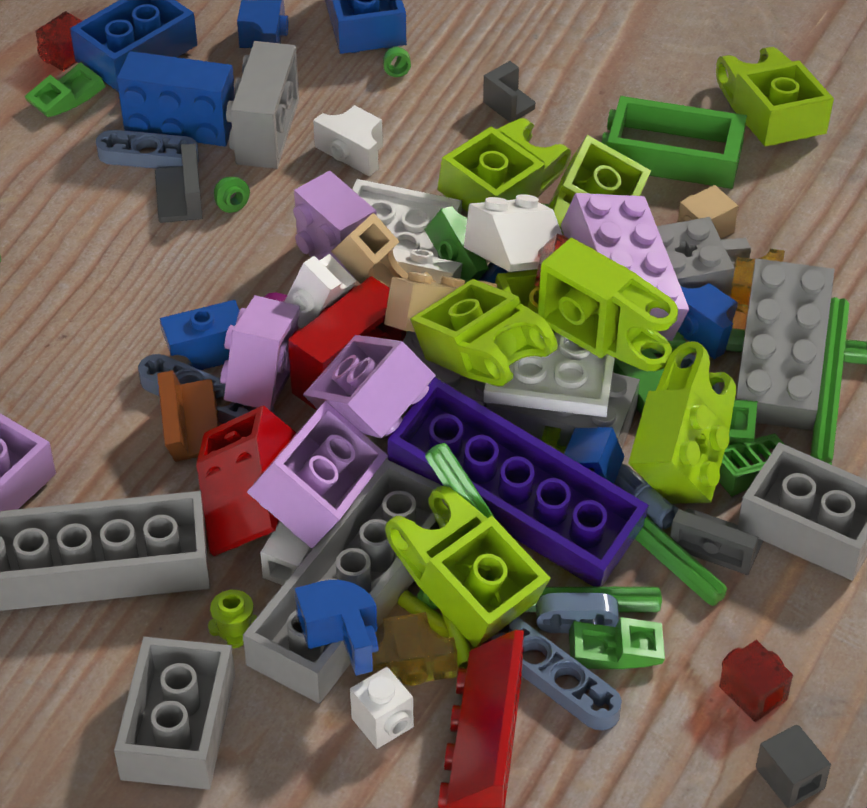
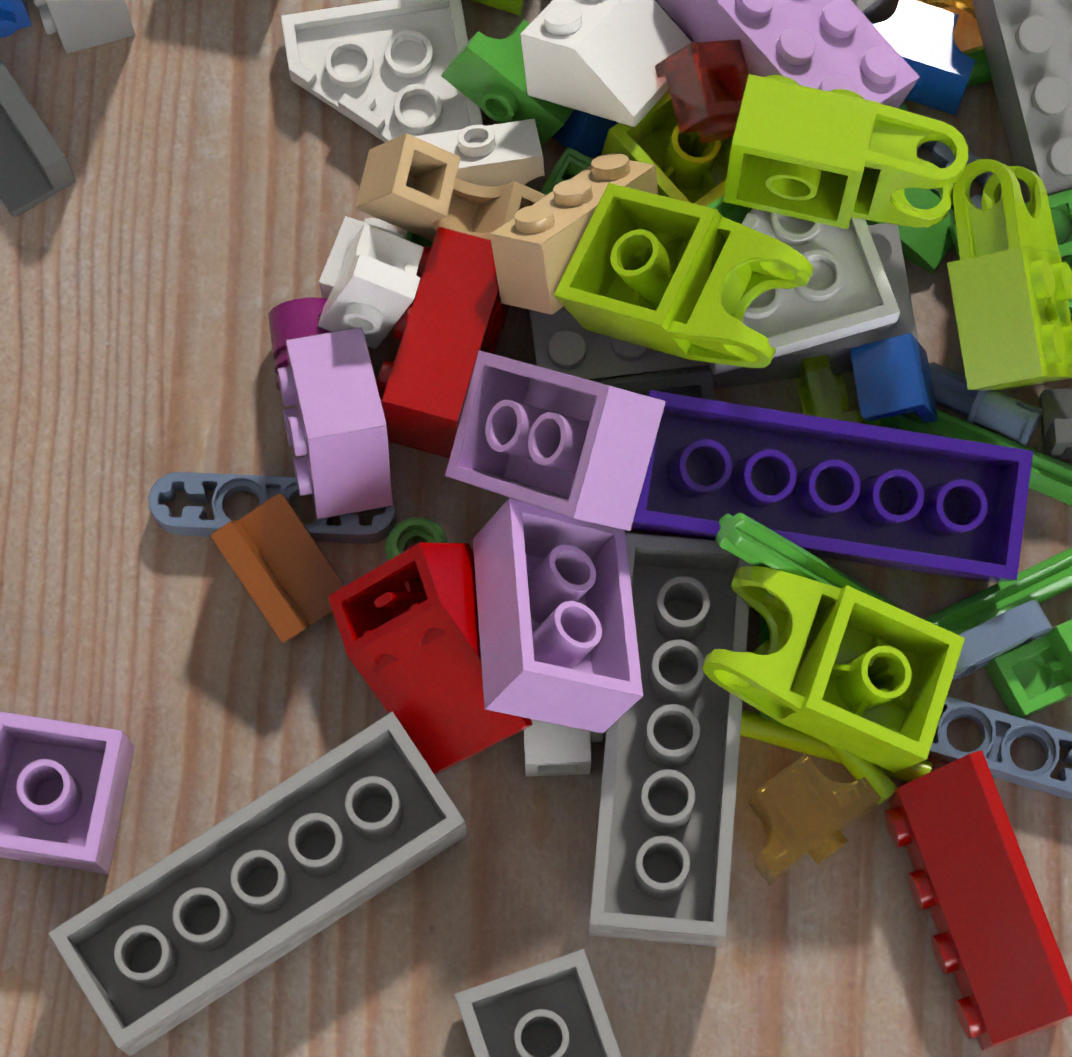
camera: 25 degrees left, 25 degrees up
(200, 334) = (220, 412): blue brick -> none
(224, 190) = (102, 124): bright green plate -> none
(231, 616) = (539, 890): lime brick -> none
(327, 214) = (307, 131): lavender brick -> none
(339, 612) = (722, 835): blue brick -> none
(382, 707) = (821, 925): white brick -> none

